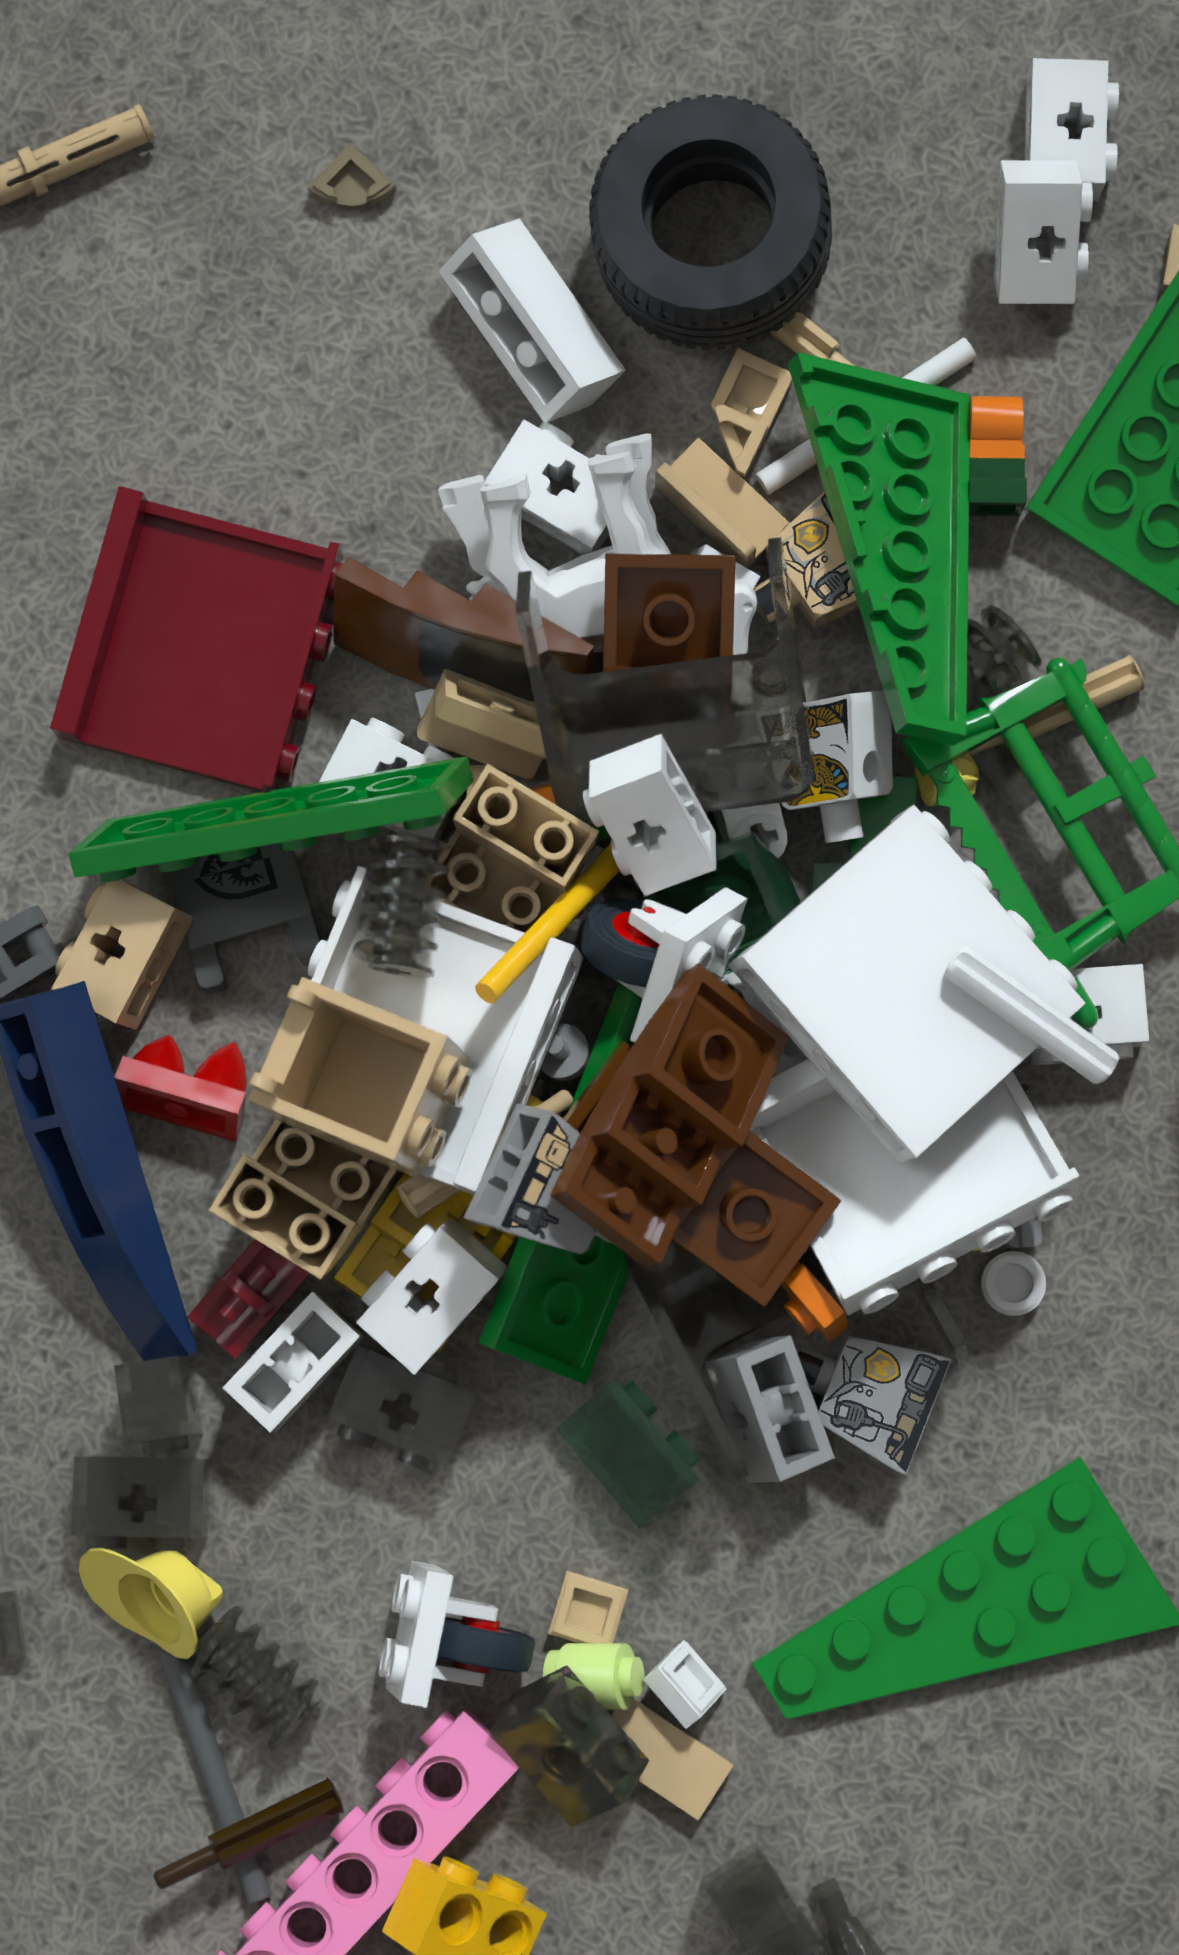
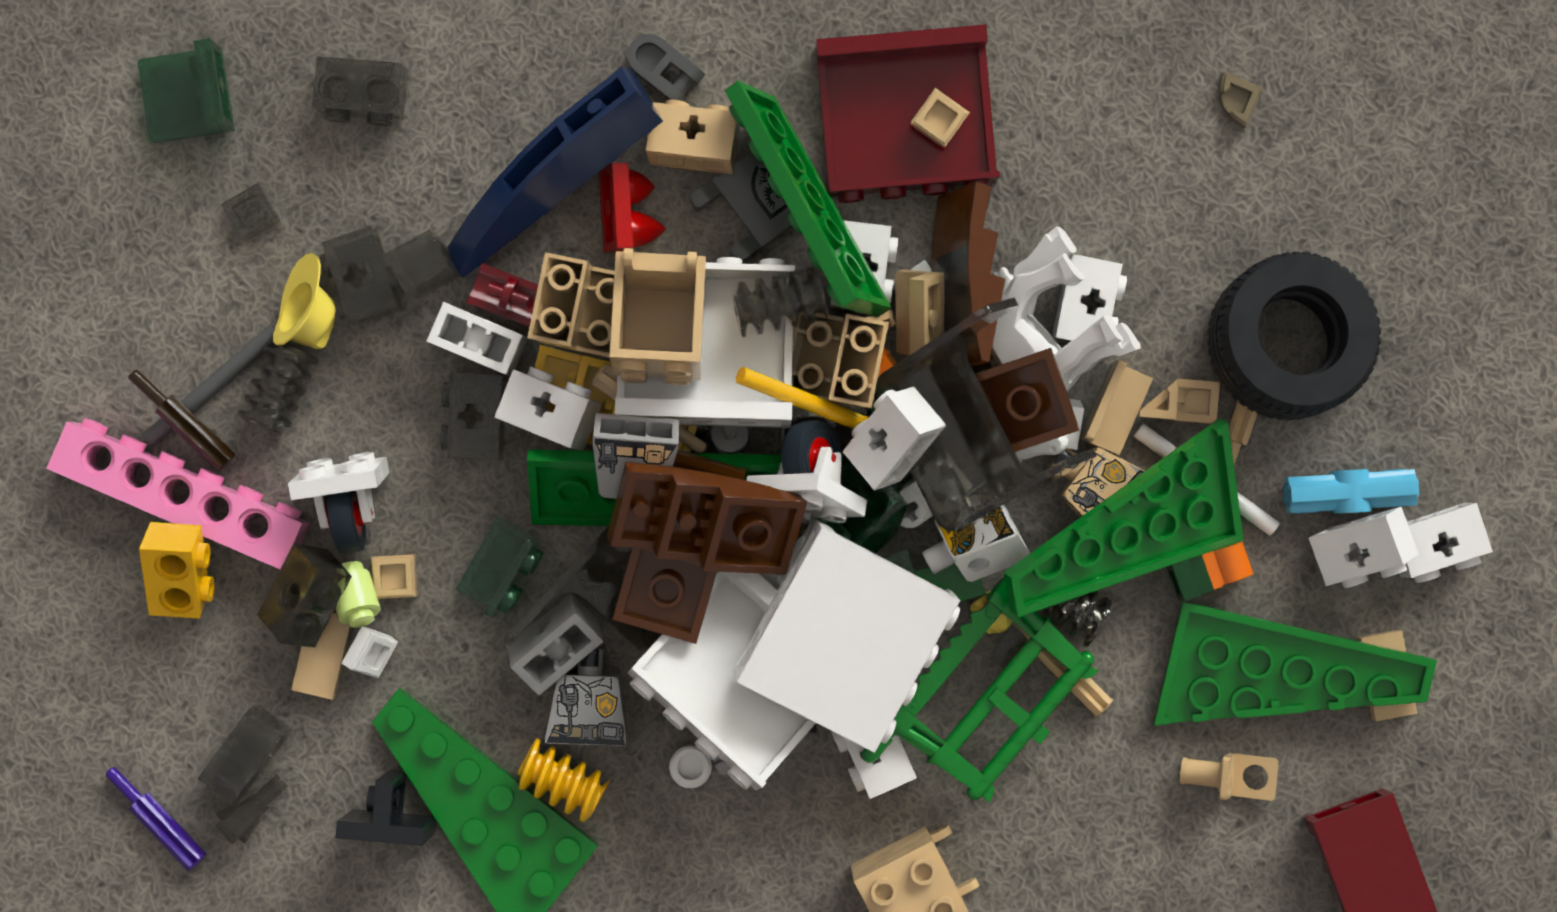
camera: 65 degrees right, 5 degrees up
(225, 599) = (939, 118): none -> tan tile
(531, 320) = (1189, 245): white brick -> none
(812, 1305) = (627, 648): orange plate -> none
(940, 1744) = (385, 816): none -> black bracket
(954, 224) = (1350, 491): none -> medium azure piece
(967, 1472) = (561, 780): none -> yellow piece
(1031, 1015) = (852, 722): white axle -> none

